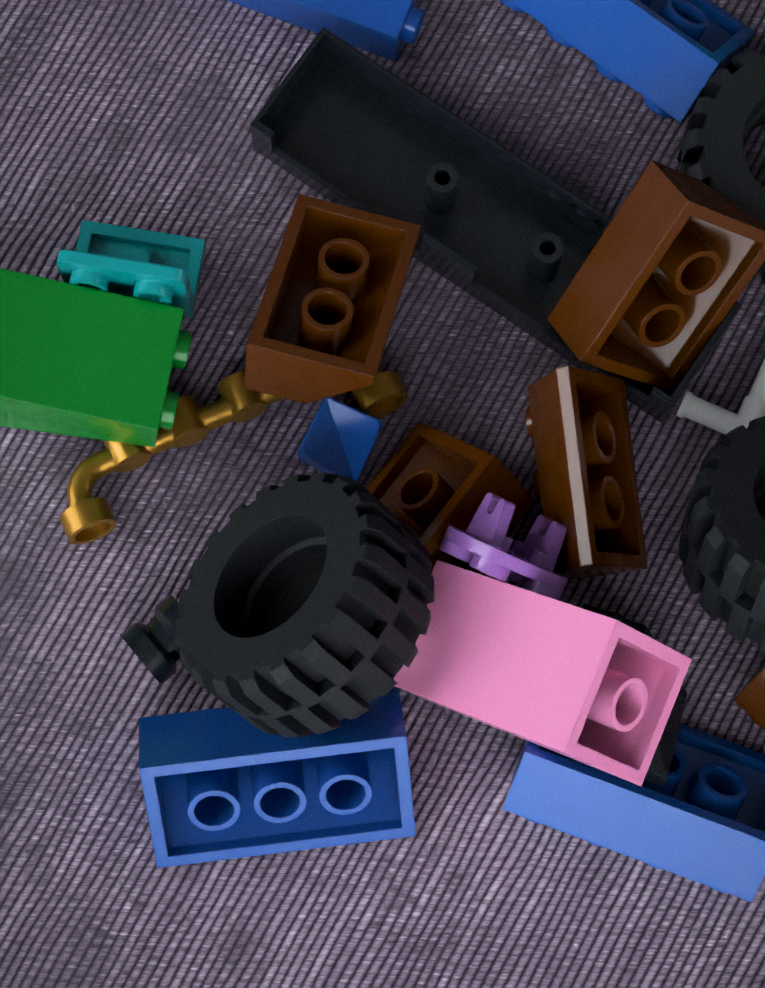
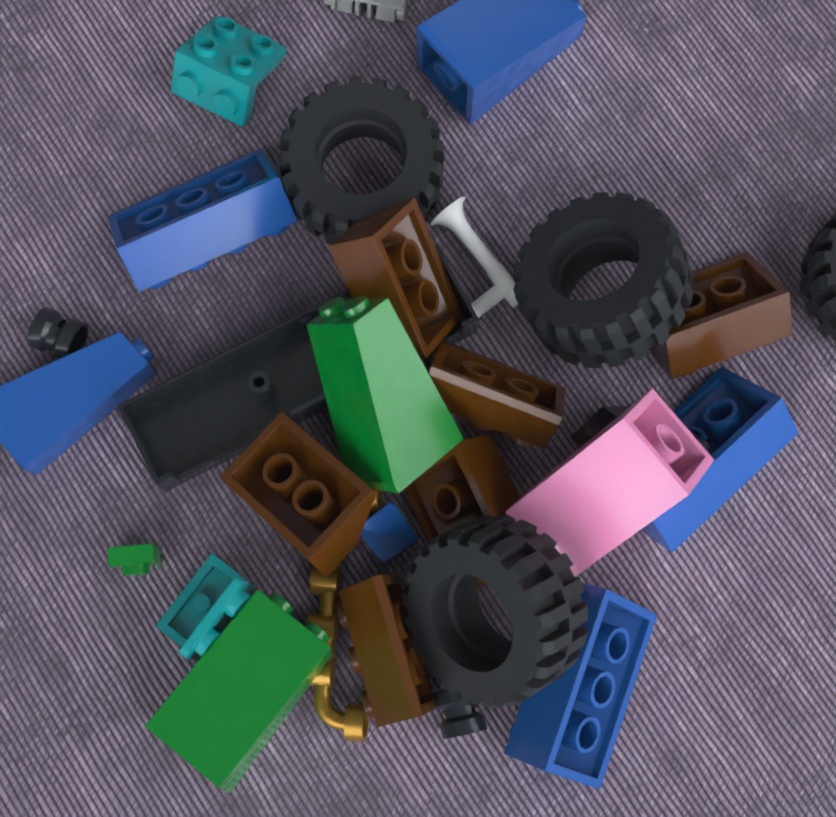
camera: 60 degrees left, 0 degrees up
(150, 154) = (135, 559): none -> green plate
(186, 502) = (383, 651): none -> reddish brown slope
(501, 327) = (379, 393): none -> green slope
(527, 562) = (526, 468): medium lavender plate -> none

